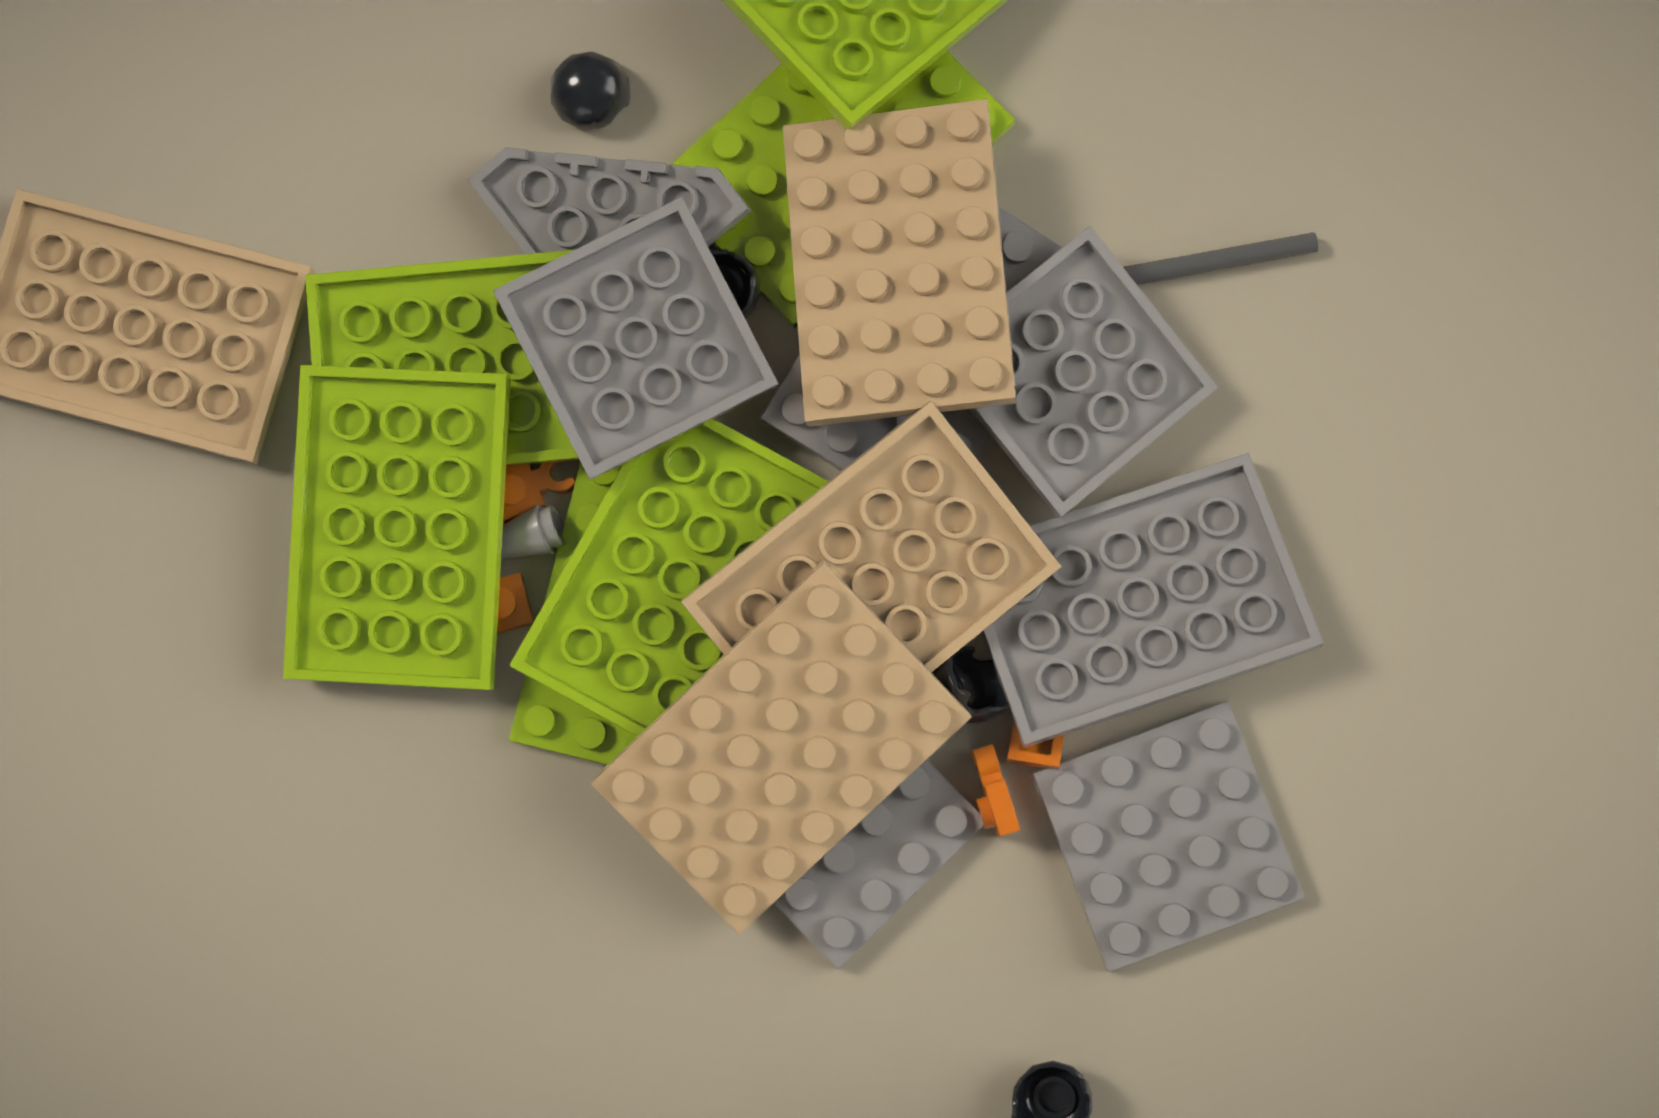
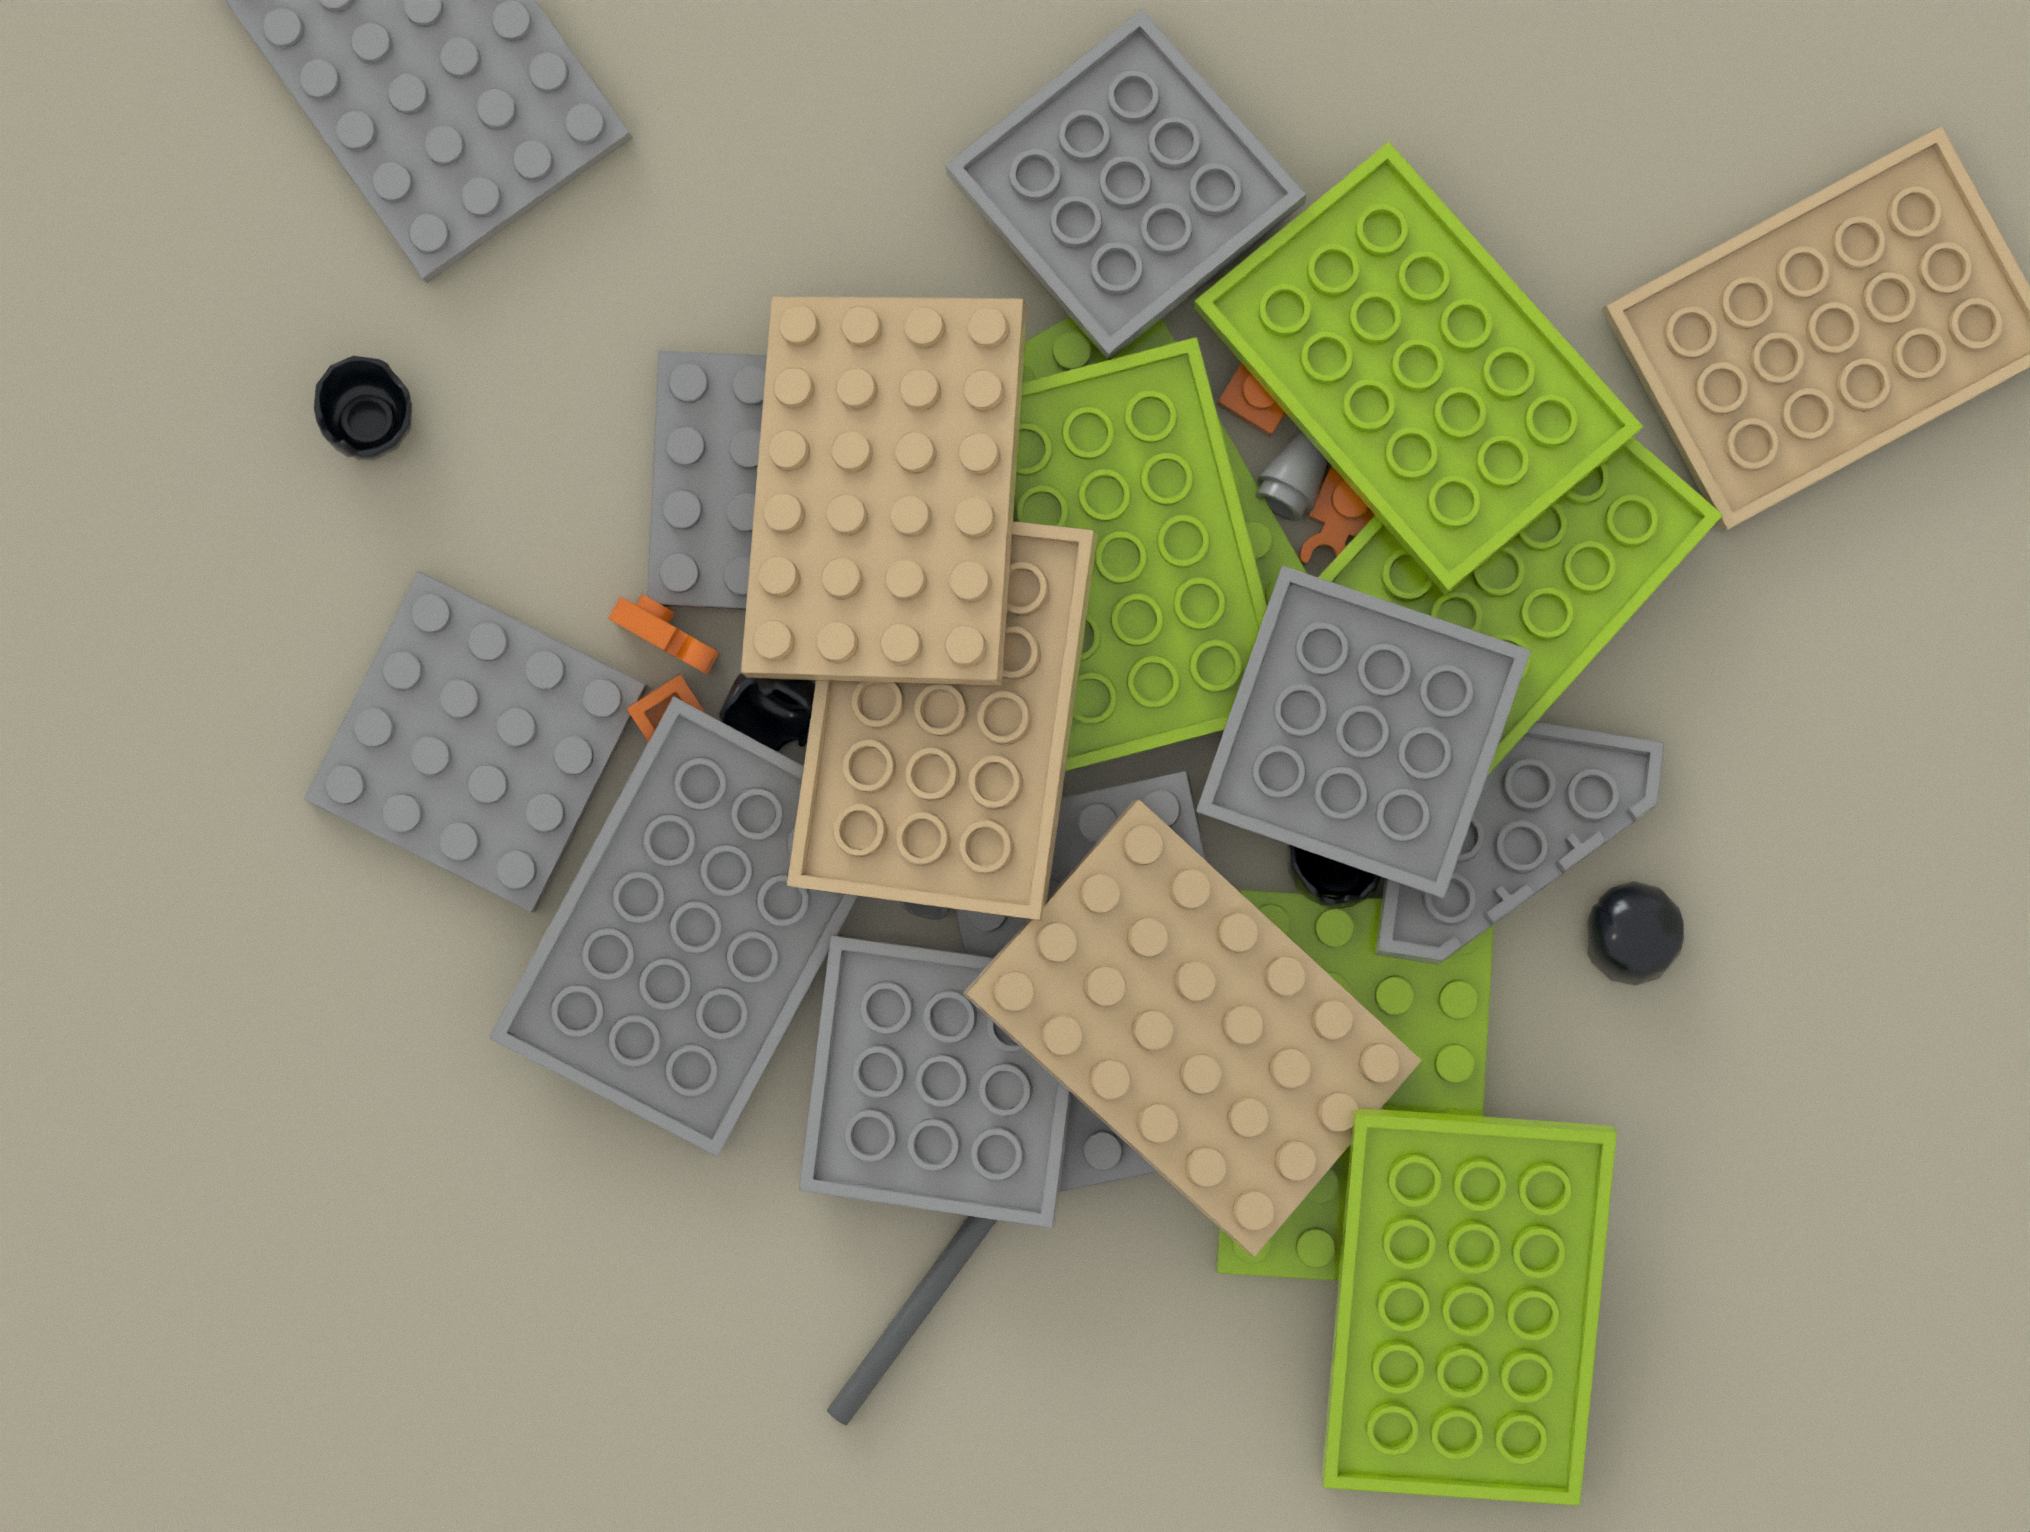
camera: 140 degrees right, 5 degrees up
(462, 802) = (1125, 184): none -> light grey plate

